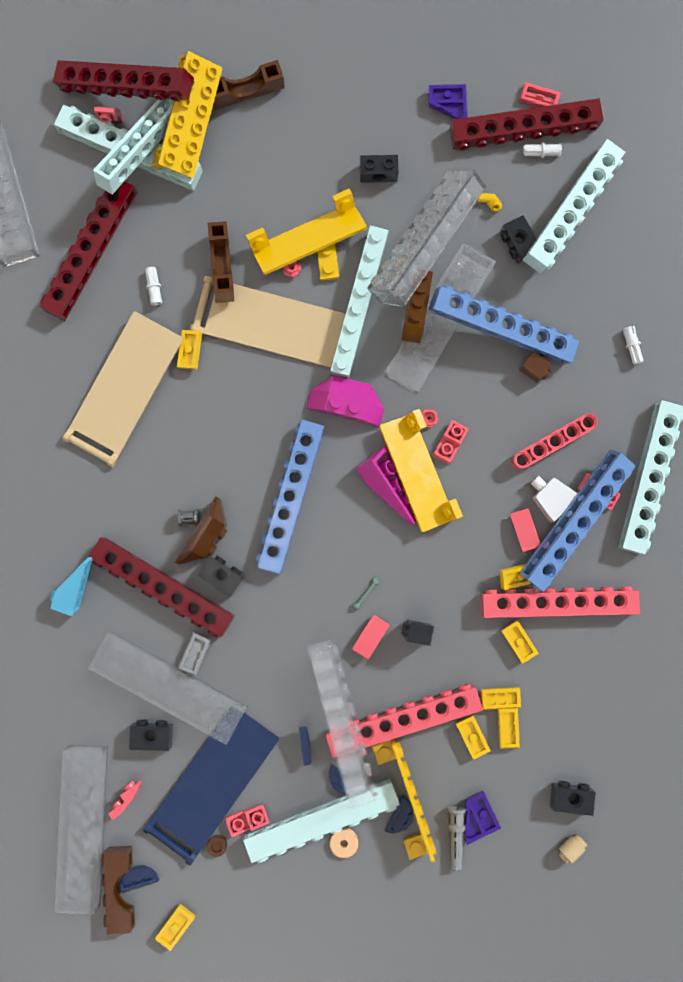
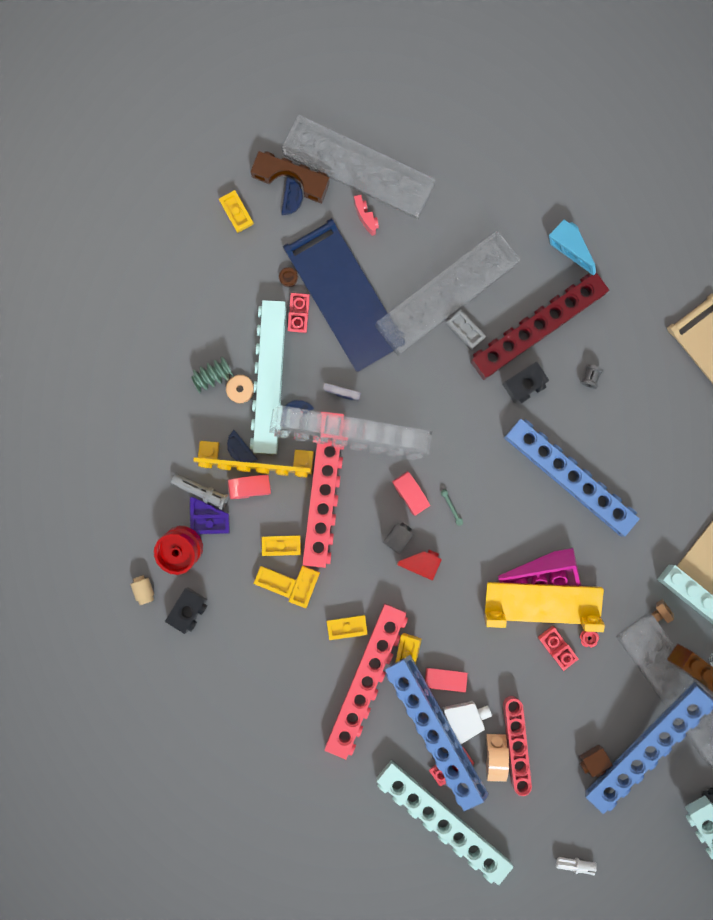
camera: 115 degrees right, 0 degrees up
(140, 740) = (414, 249): black brick -> none
(206, 534) = (569, 385): reddish brown wedge -> none
(343, 877) = (211, 374): none -> sand green piece
(347, 400) = (638, 569): dark pink wedge -> none
(376, 362) = (663, 611): none -> medium nougat tile
(431, 599) = (422, 563): none -> red slope
(432, 792) = (249, 486): none -> coral slope
(521, 834) = (178, 550): none -> red wheel
(573, 455) = (497, 757): none -> light nougat brick

